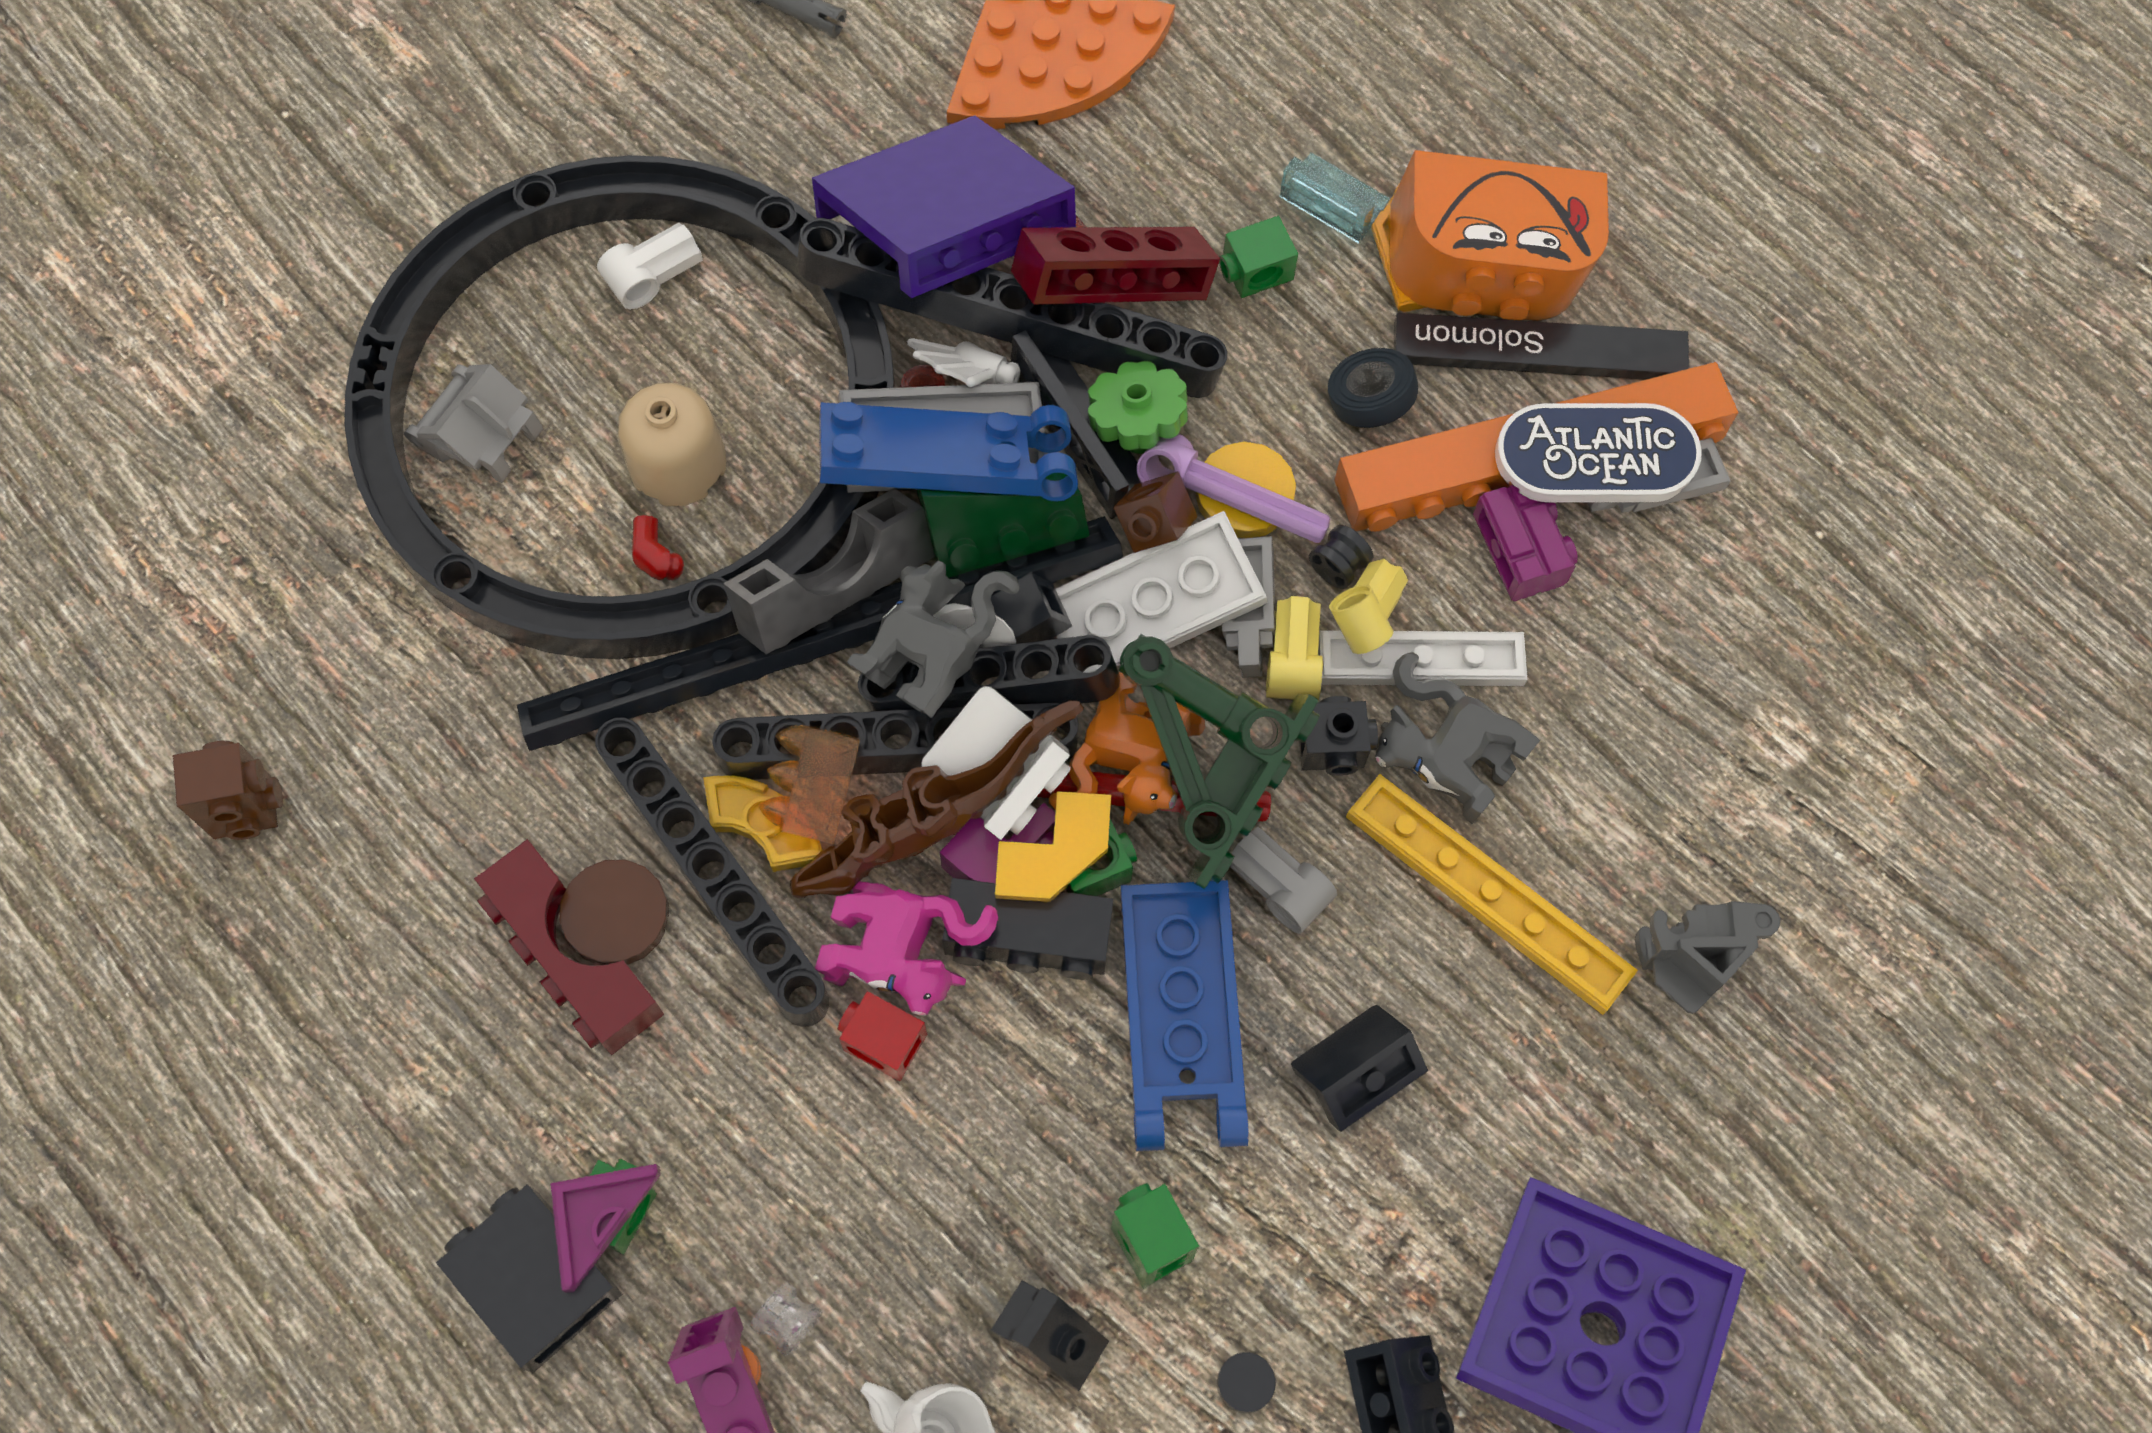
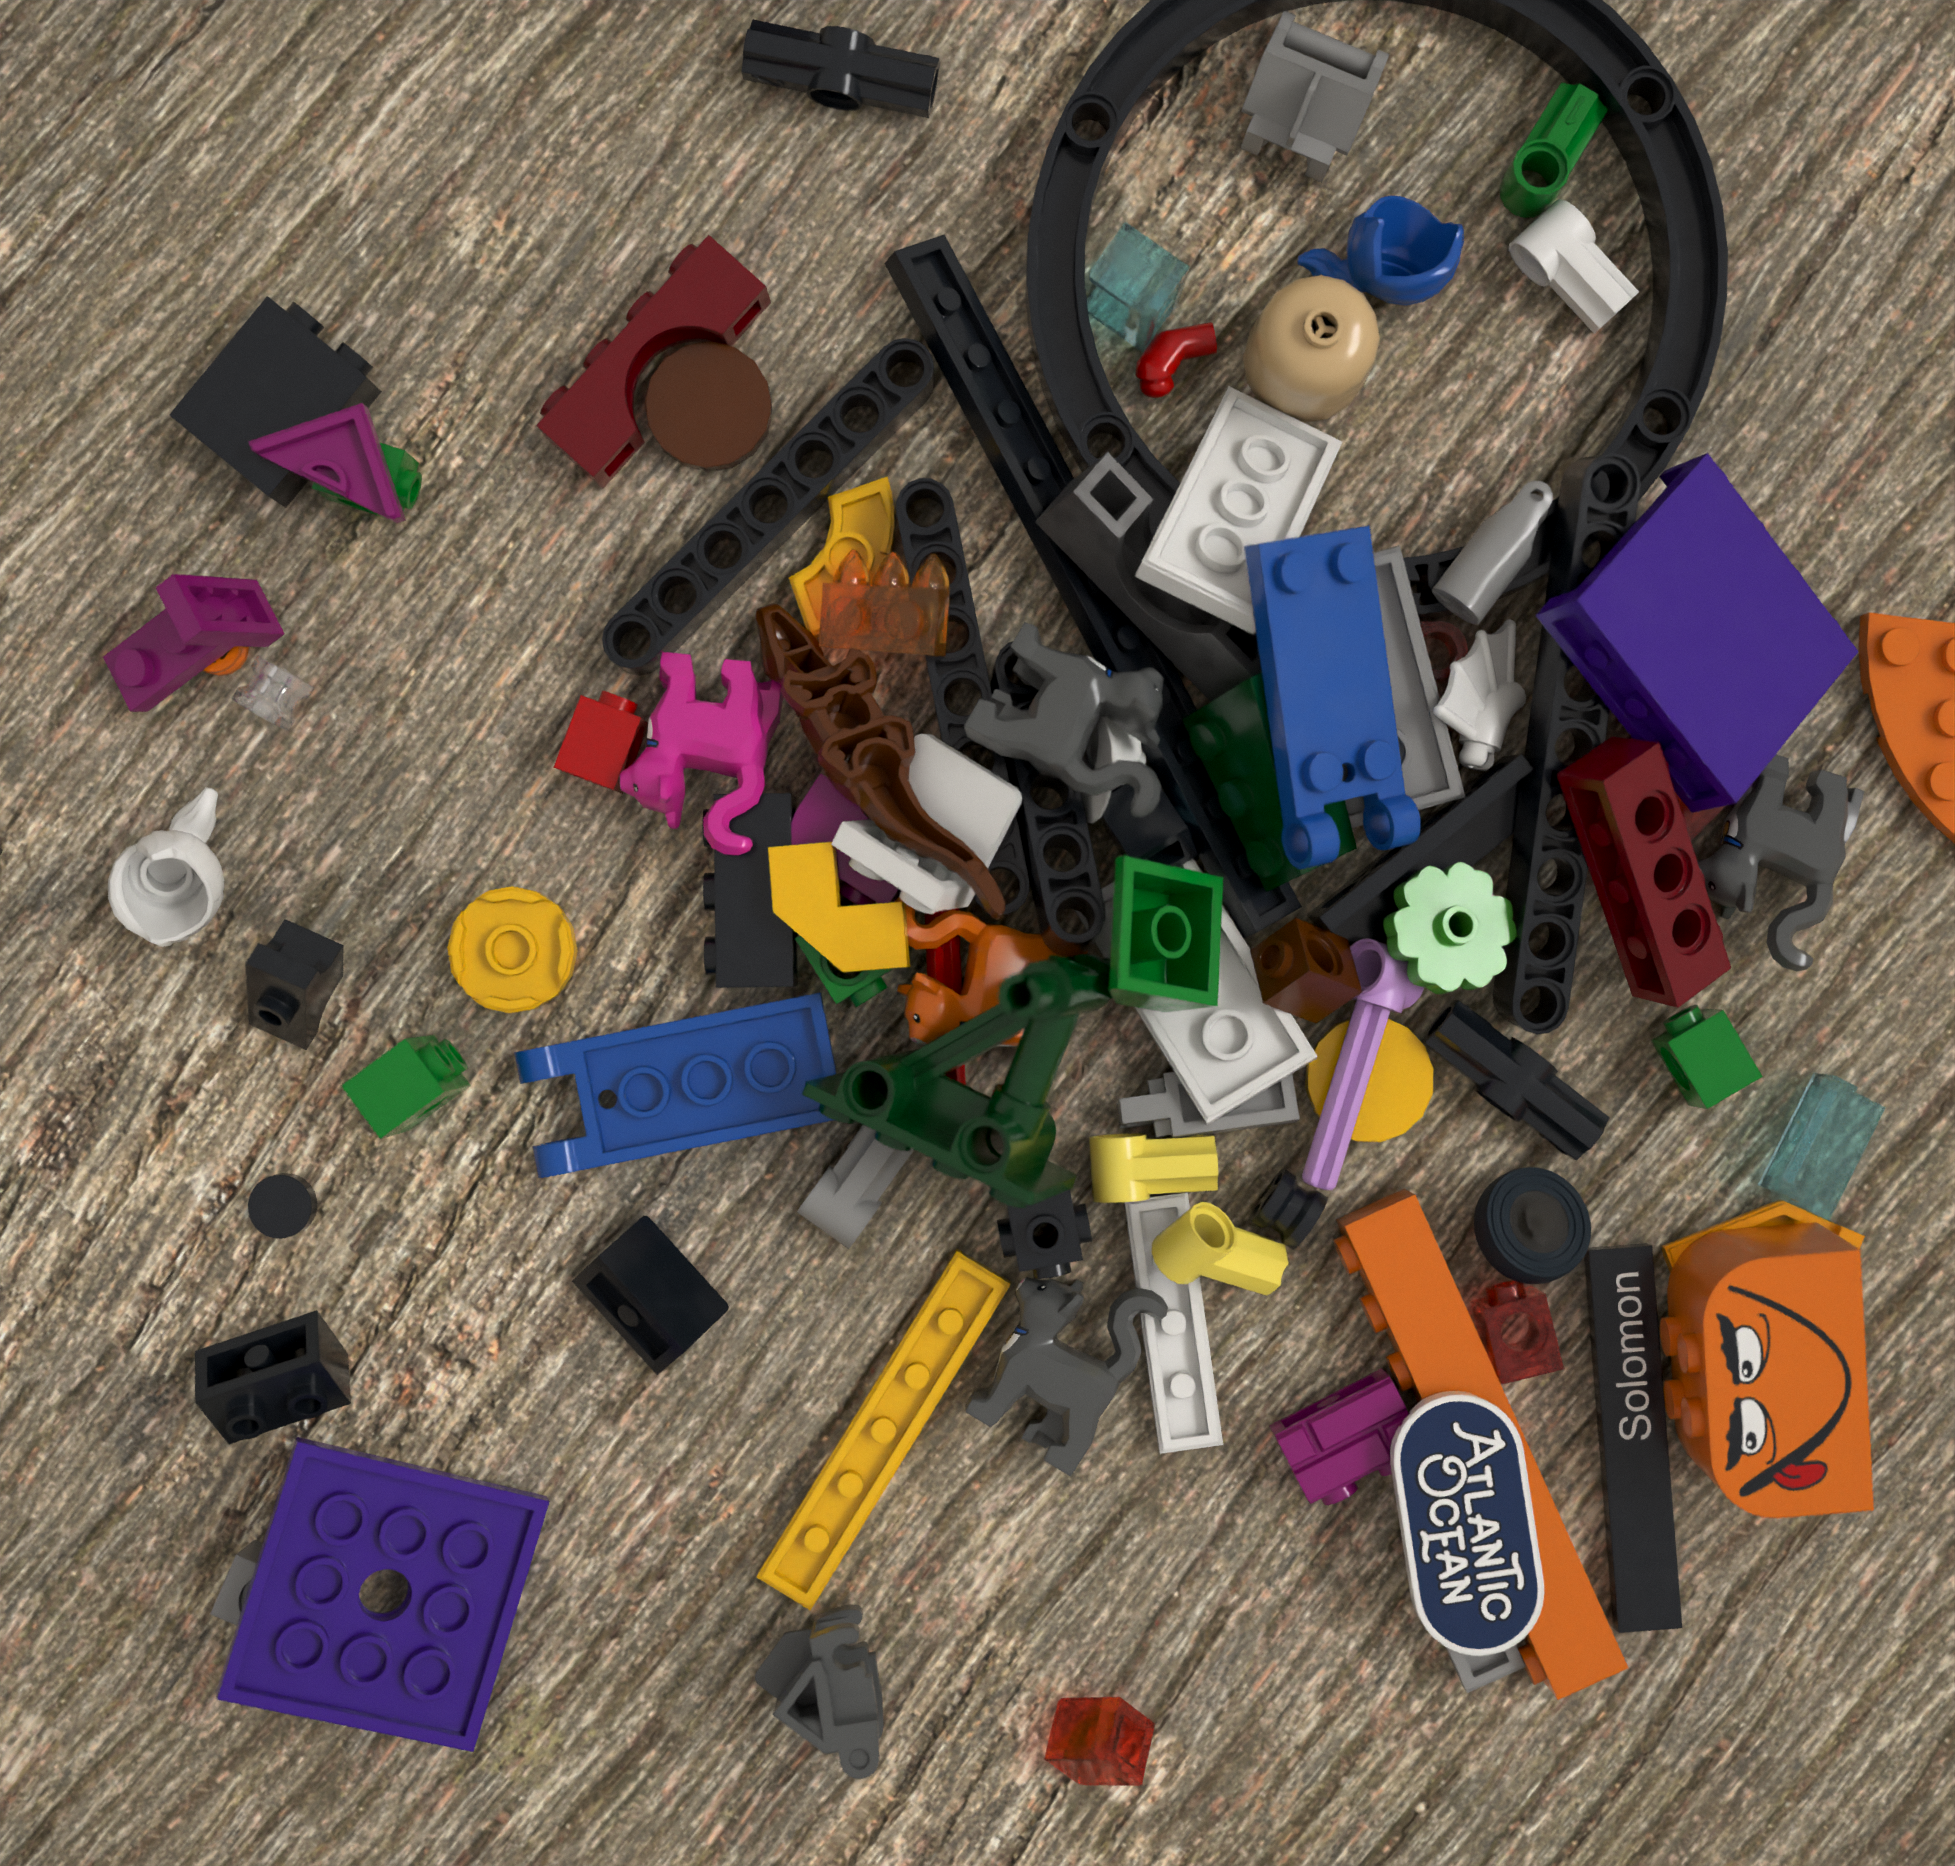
camera: 80 degrees right, 20 degrees up
(361, 765) = (840, 68): none -> black piece
(559, 267) = (1552, 149): none -> green piece
(595, 555) = (1135, 286): none -> clear light blue panel
(610, 376) = (1394, 253): none -> blue hair
(783, 507) = (1243, 488): none -> white tile
(859, 331) = (1493, 555): none -> light grey piece
(1046, 1144) = (512, 949): none -> yellow tile
(1110, 177) = (1789, 842): none -> dark grey animal
(1114, 597) = (1165, 936): none -> green slope
(1259, 386) = (1515, 1080): none -> black piece
(1463, 393) = (1537, 1351): none -> clear red brick
(1757, 755) = (1100, 1741): none -> clear red panel

